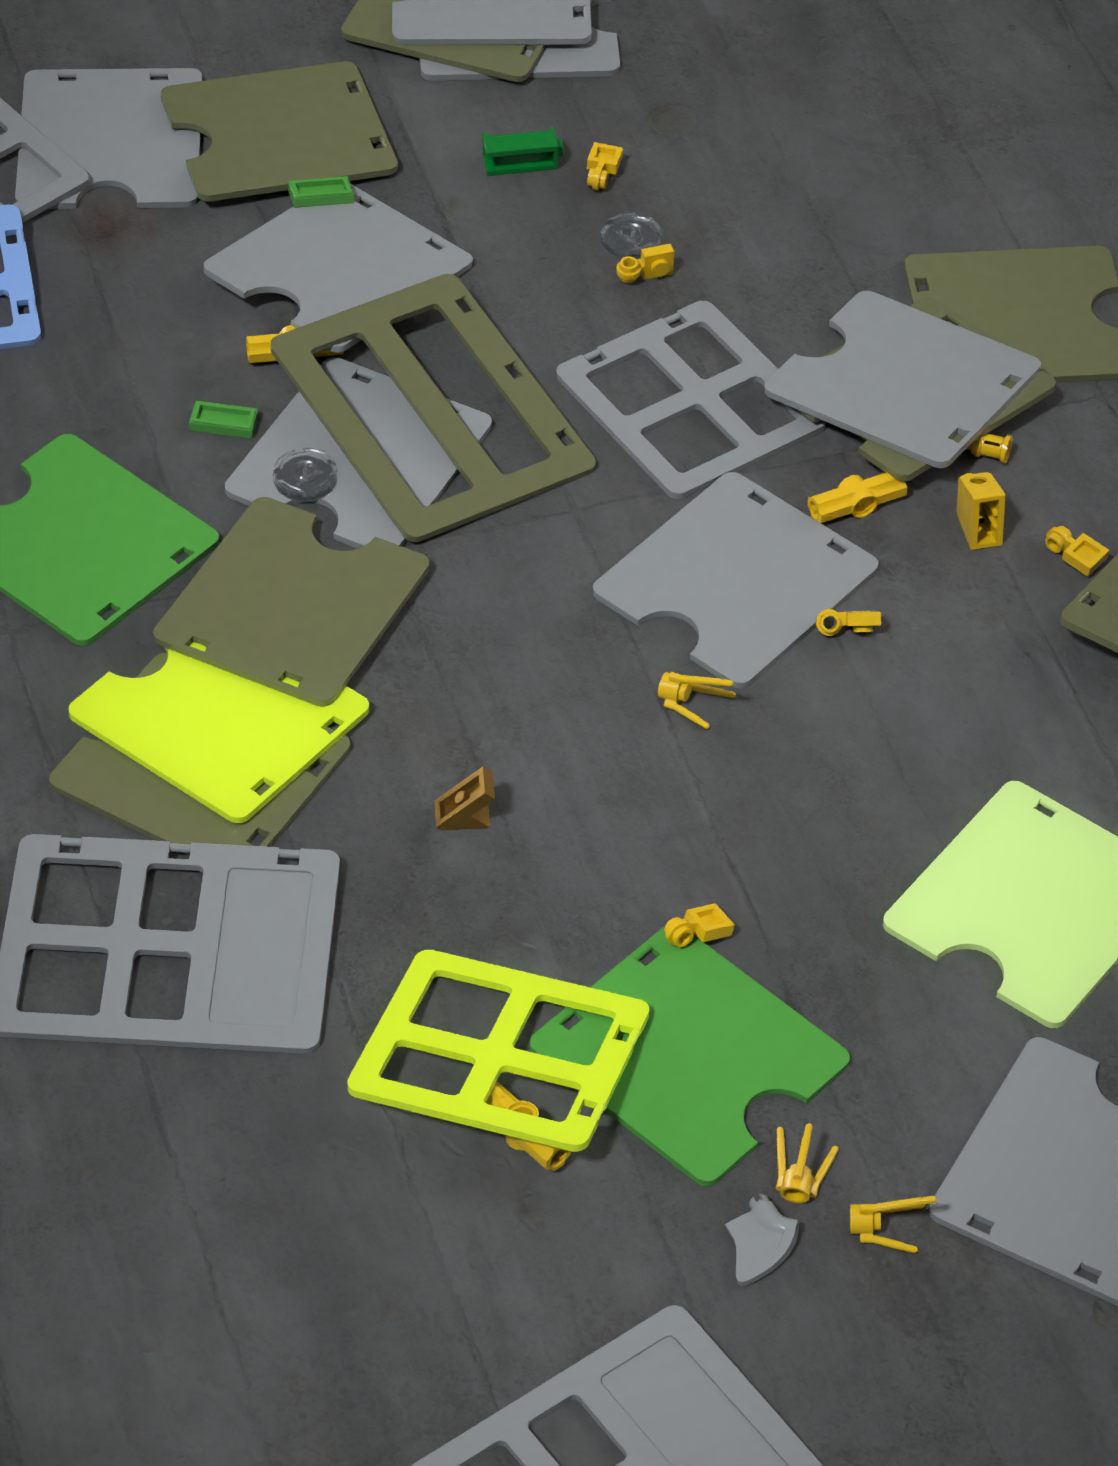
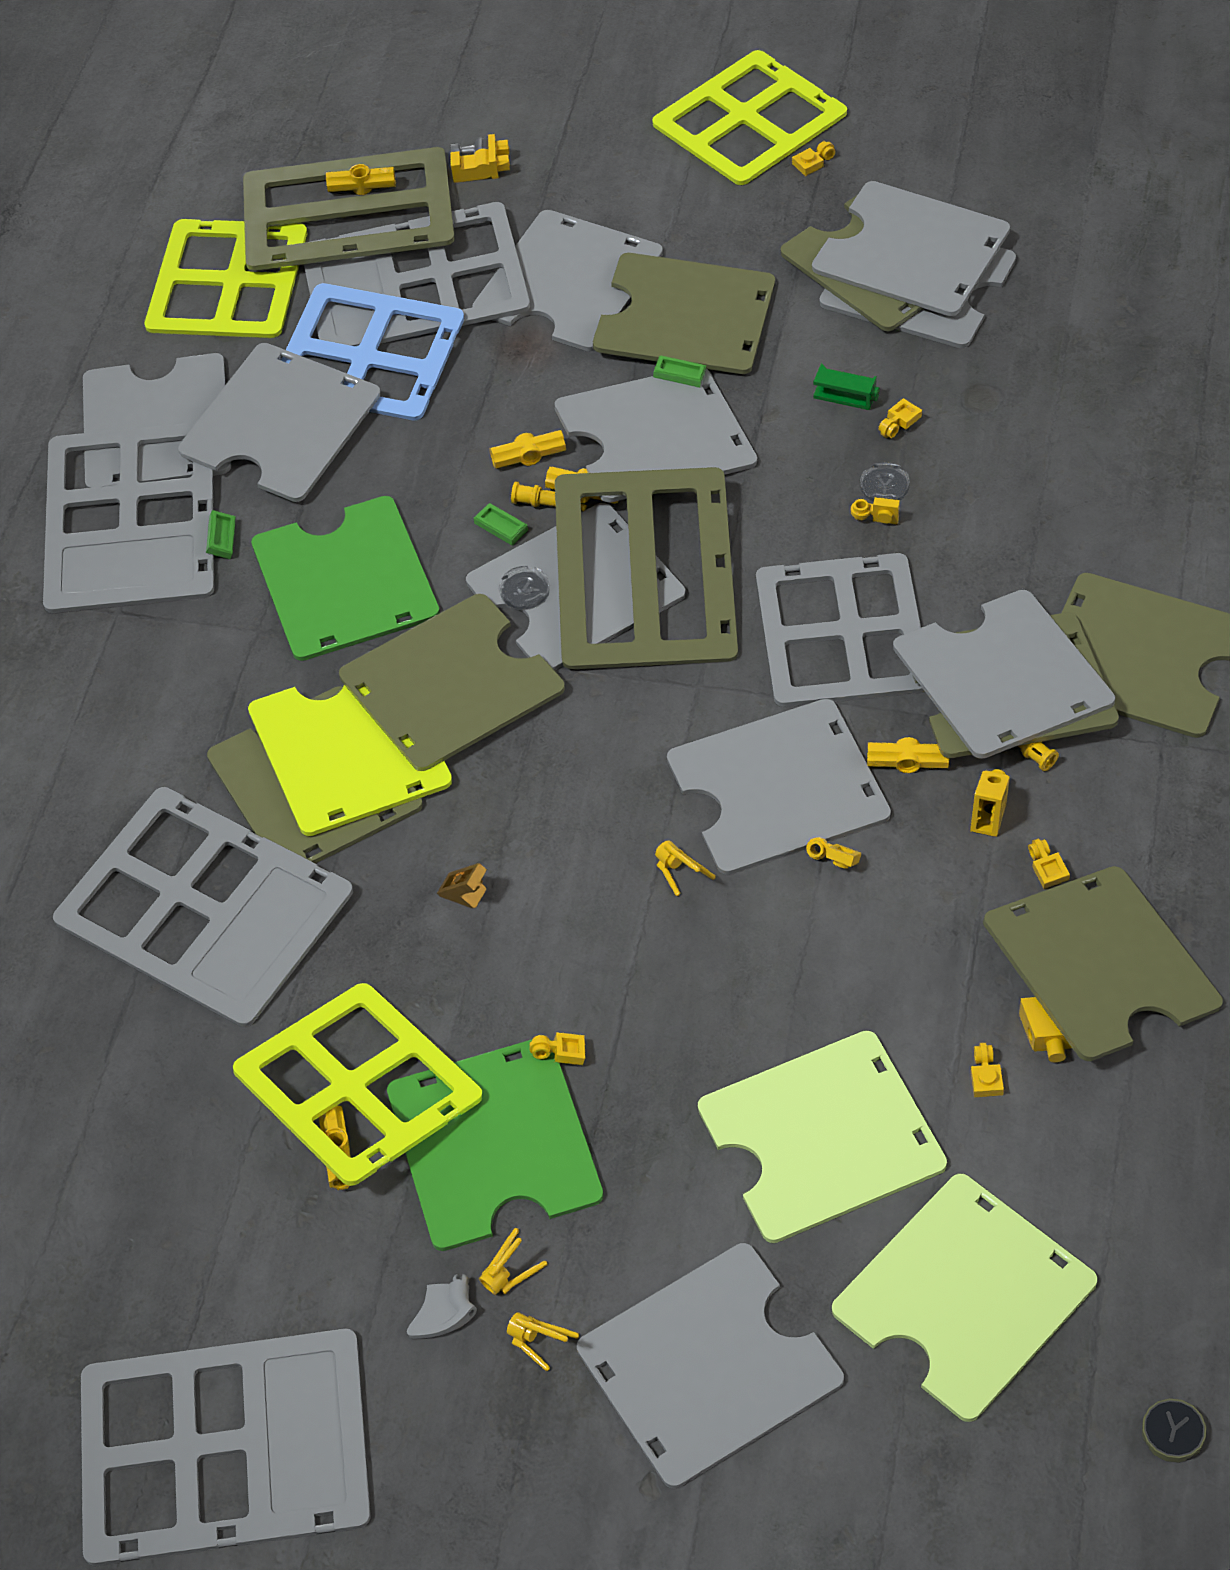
camera: 35 degrees right, 5 degrees up
(200, 329) = (527, 449): none -> yellow piece
(247, 375) = (536, 496): none -> yellow pin

